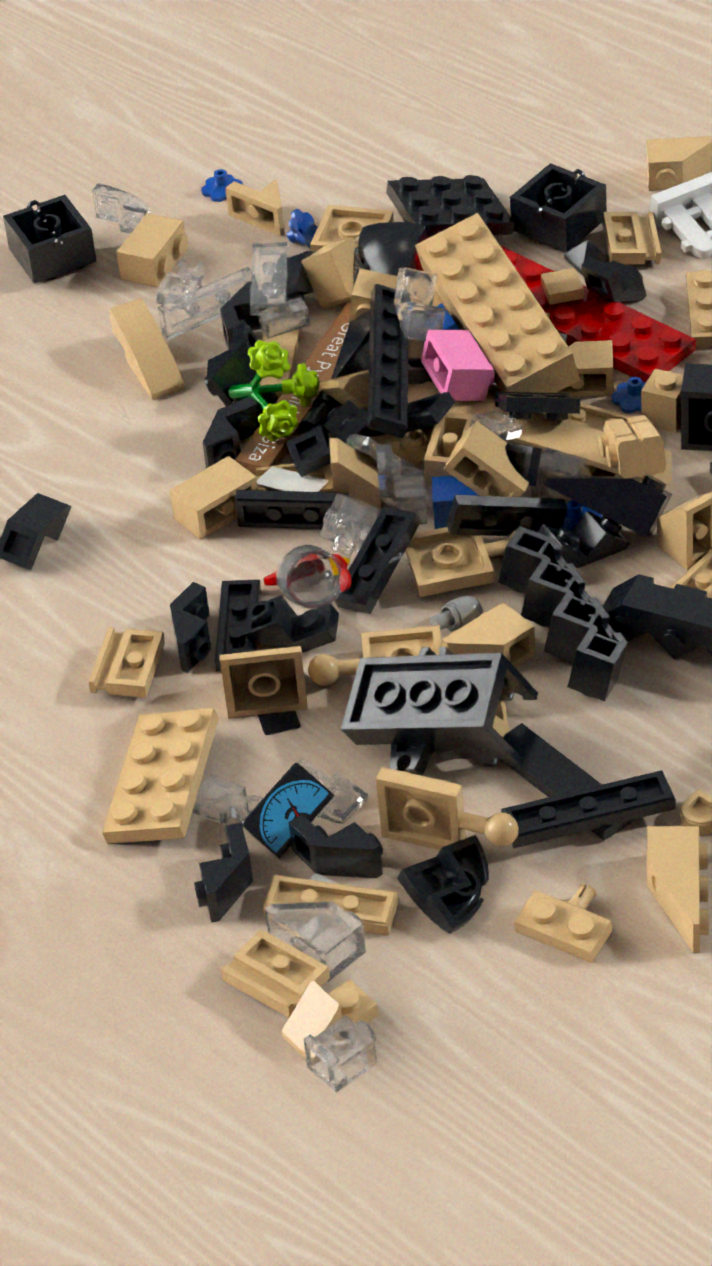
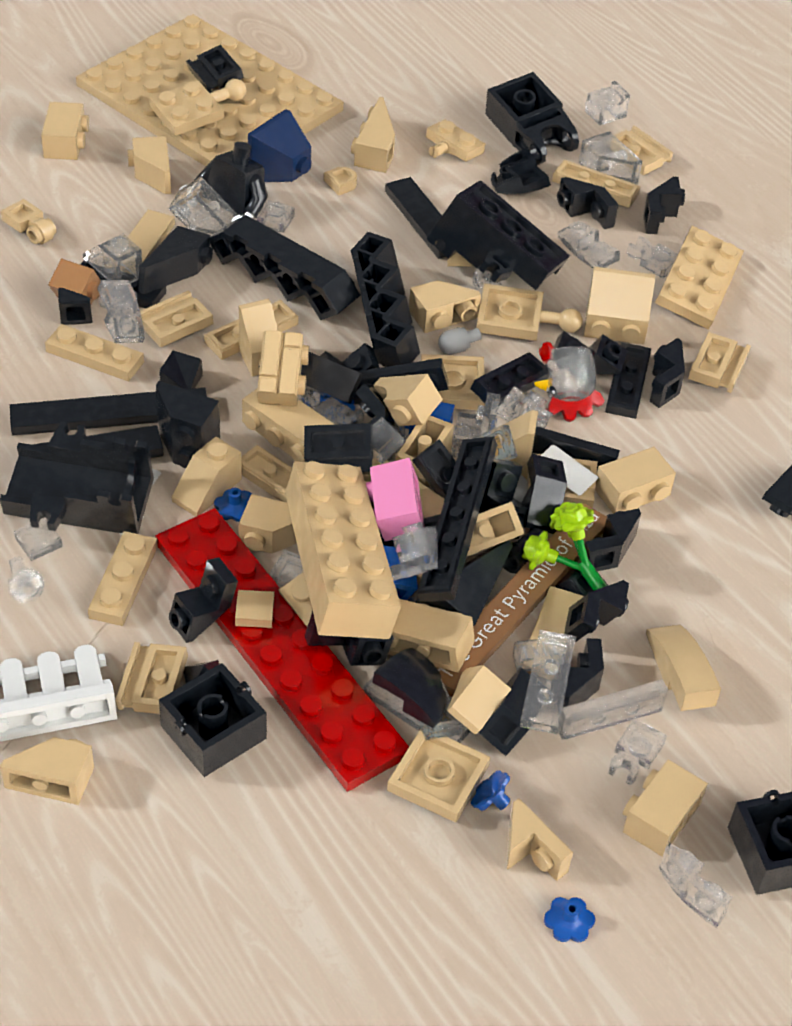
camera: 175 degrees left, 5 degrees up
(290, 797) = (616, 227): slope -> none
(321, 1009) = (612, 120): slope -> none
(433, 813) = (523, 186): tan plate -> none
(448, 201) = (326, 762): black plate -> none
(456, 967) = (530, 116): none -> black brick
(591, 808) = (414, 182): black tile -> none

